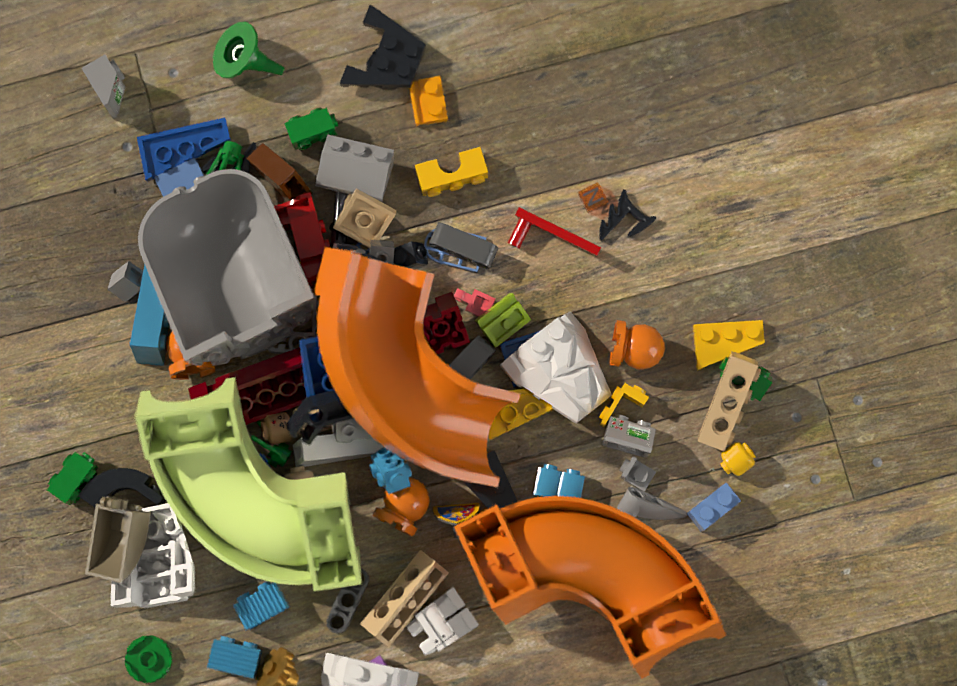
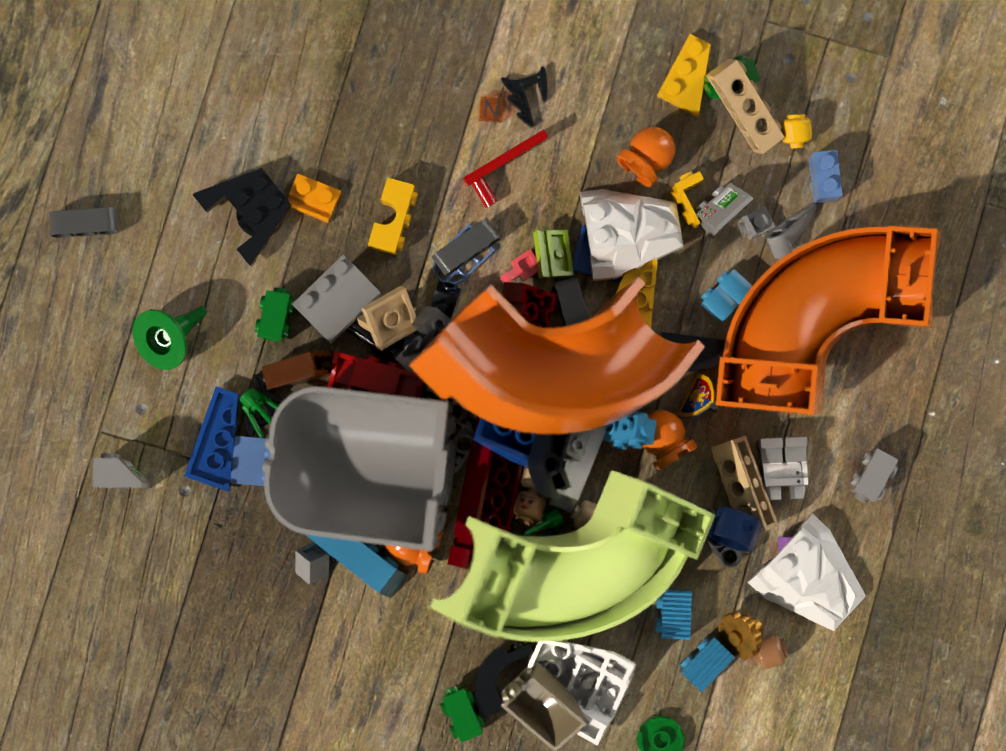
camera: 65 degrees left, 5 degrees up
(359, 608) = (735, 529): none -> dark blue piece

